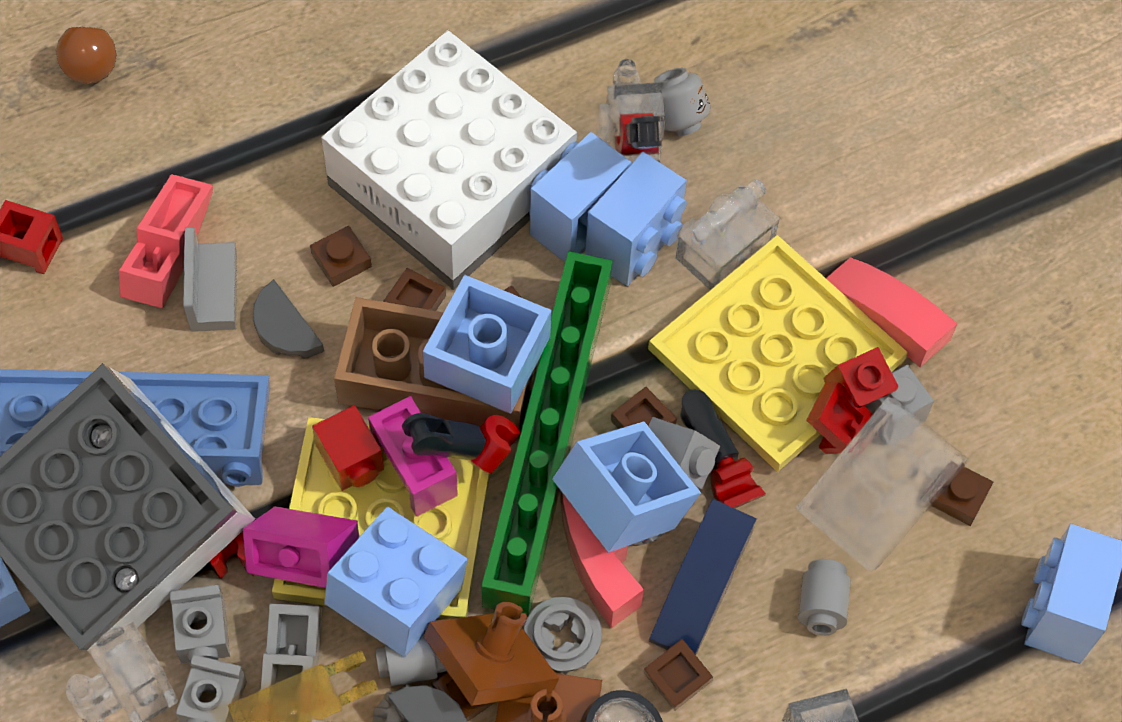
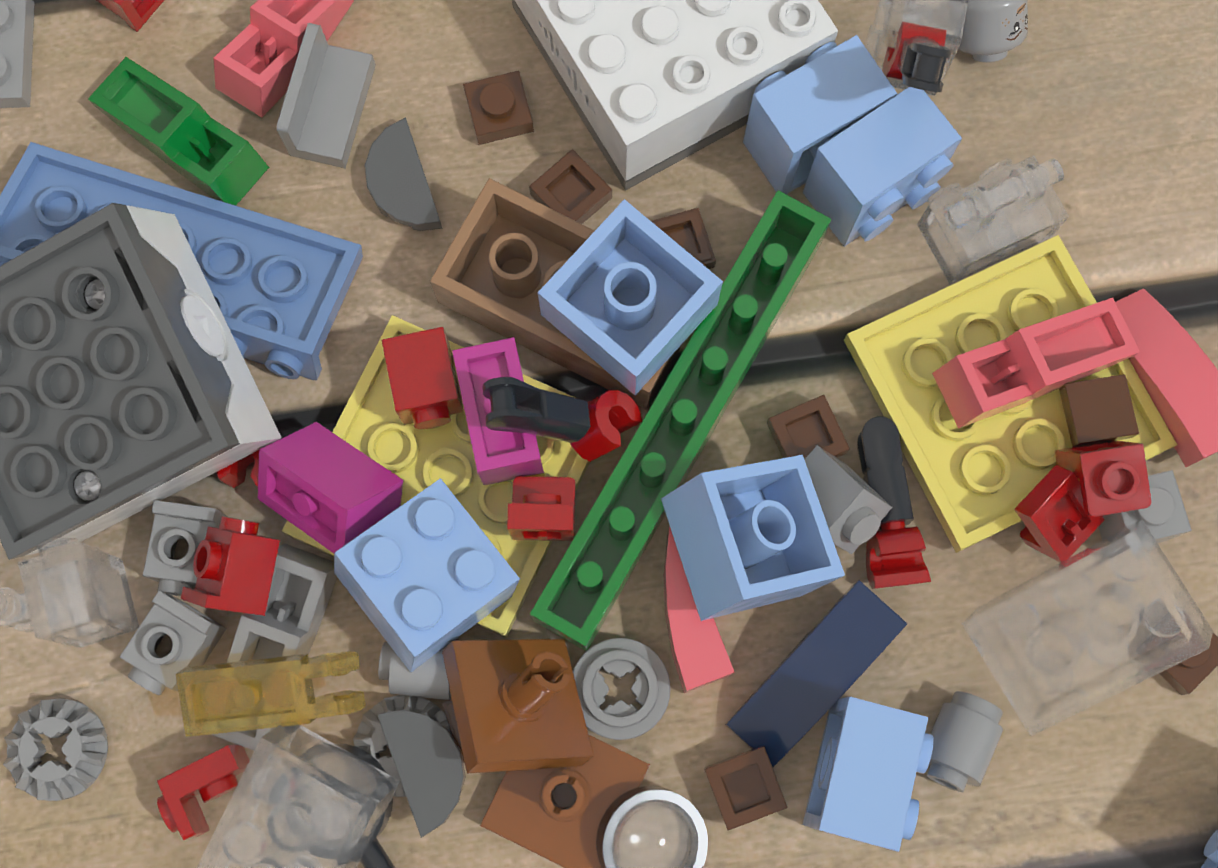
camera: 20 degrees right, 15 degrees up
(102, 333) = (179, 132): none -> green slope
(247, 621) = (233, 568): none -> red brick
(468, 516) = (542, 509): none -> red bracket
(761, 630) = (868, 773): none -> light blue brick
(787, 321) = (1034, 362): none -> coral slope
(842, 339) = (1098, 410): none -> reddish brown tile

